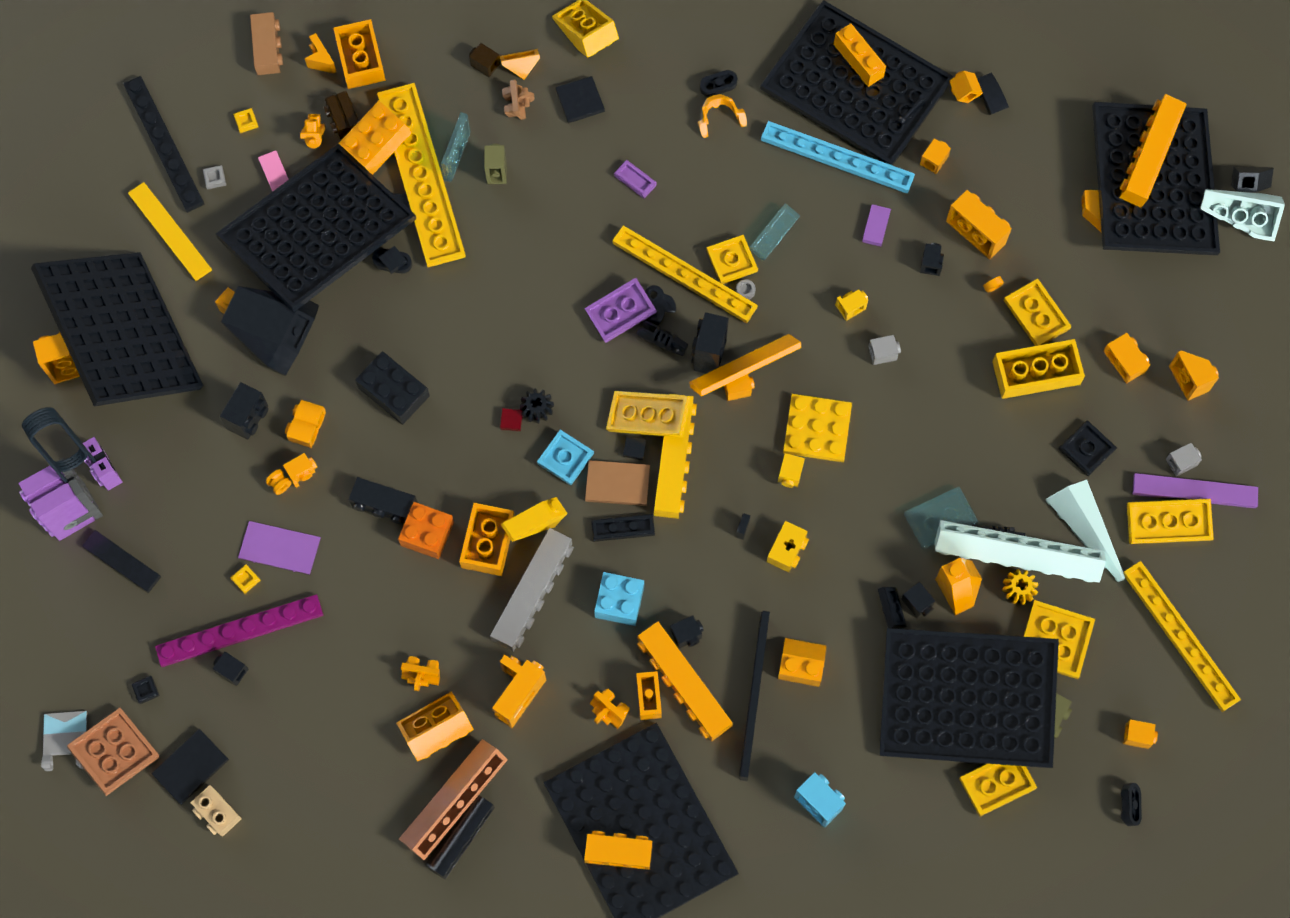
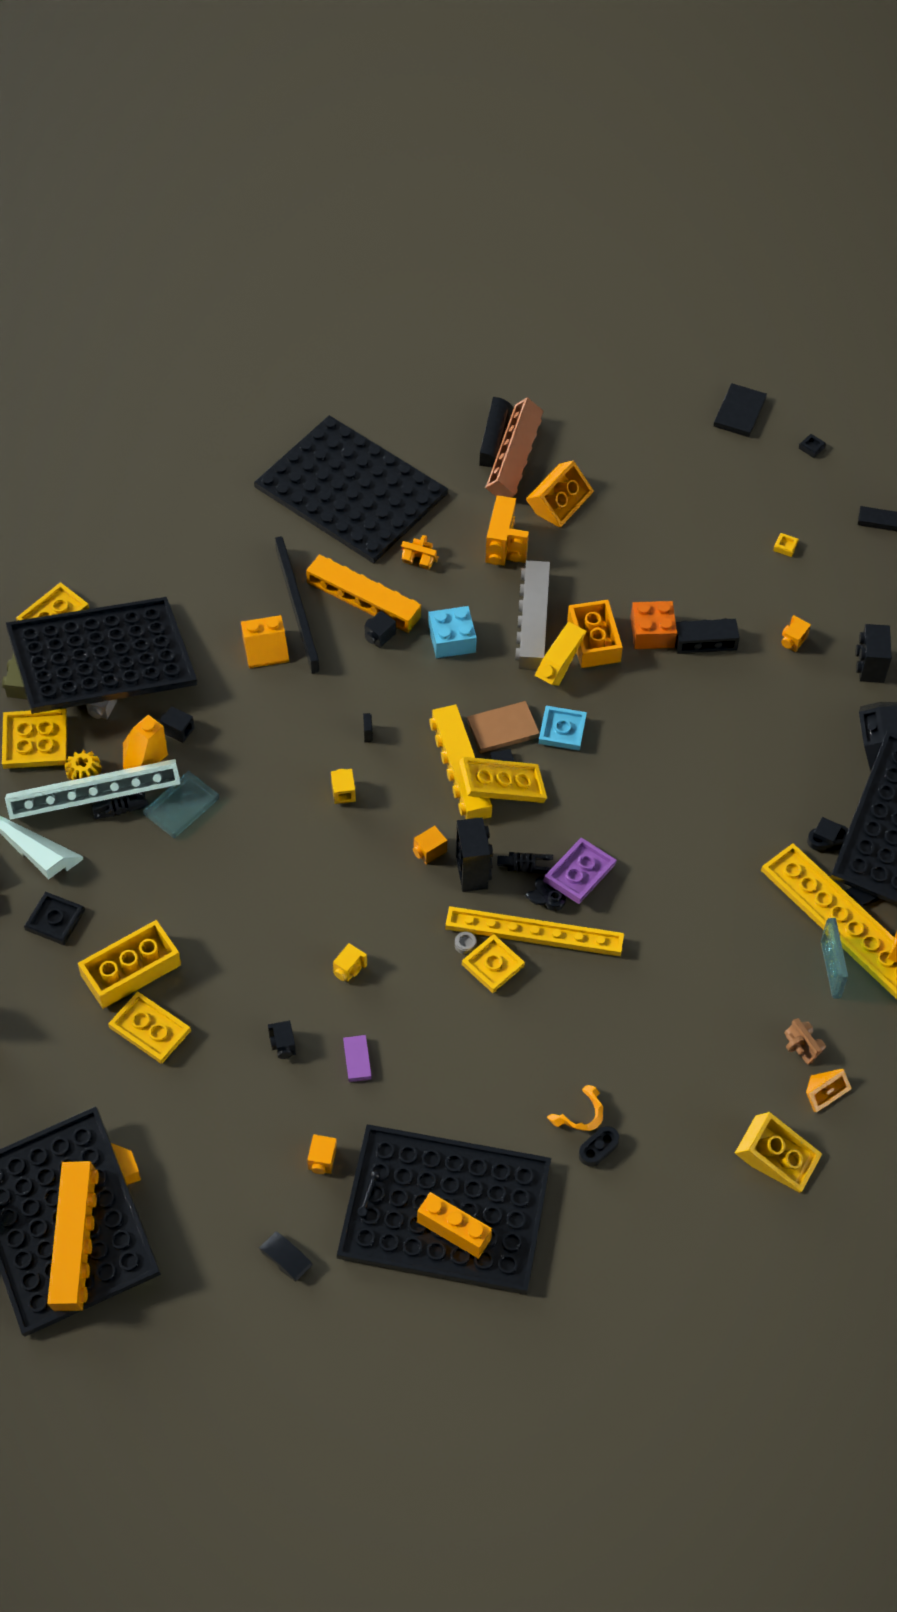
camera: 155 degrees right, 15 degrees down
(60, 731) = (851, 397): light grey flag -> none
(113, 751) = (806, 393): nougat plate -> none
(215, 810) = (699, 386): tan brick -> none
(230, 668) = (753, 476): black brick -> none
(239, 630) = (764, 508): magenta plate -> none
(278, 482) = (808, 616): light orange wheel -> none
(279, 547) = (773, 578): medium lavender window -> none
(305, 424) = (815, 671): light orange brick -> none
(392, 387) = (755, 725): black brick -> none
(420, 675) = (594, 521): light orange hips -> none
(484, 59) = (864, 1071): dark brown brick -> none
(495, 164) = (783, 956): olive brick -> none
(511, 419) = (631, 744): dark red tile -> none
(540, 411) = (613, 759): black gear -> none
(580, 99) = (738, 1072): black tile -> none
(618, 850) = (360, 453): light orange brick -> none
(623, 527) = (480, 693): black tile -> none
(635, 179) = (635, 1011): medium lavender tile -> none
(649, 695) = (389, 568): light orange brick -> none
(745, 365) = (428, 858): light orange tile -> none
(774, 232) = (462, 1009): clear light blue tile -> none
(788, 535) = (318, 725): yellow brick -> none
(817, 428) = (334, 840): yellow plate -> none
(820, 799) = (205, 541): medium azure brick -> none
(837, 157) = (430, 1113): medium azure plate -> none
(884, 349) = (297, 930): light grey brick -> none
(892, 607) = (201, 711): black plate -> none
(965, 86) = (317, 1245): light orange brick -> none
(978, 224) = (245, 1085): light orange brick -> none
(993, 284) = (206, 1038): light orange tile -> none
(1127, 357) = (38, 1015): light orange brick -> none

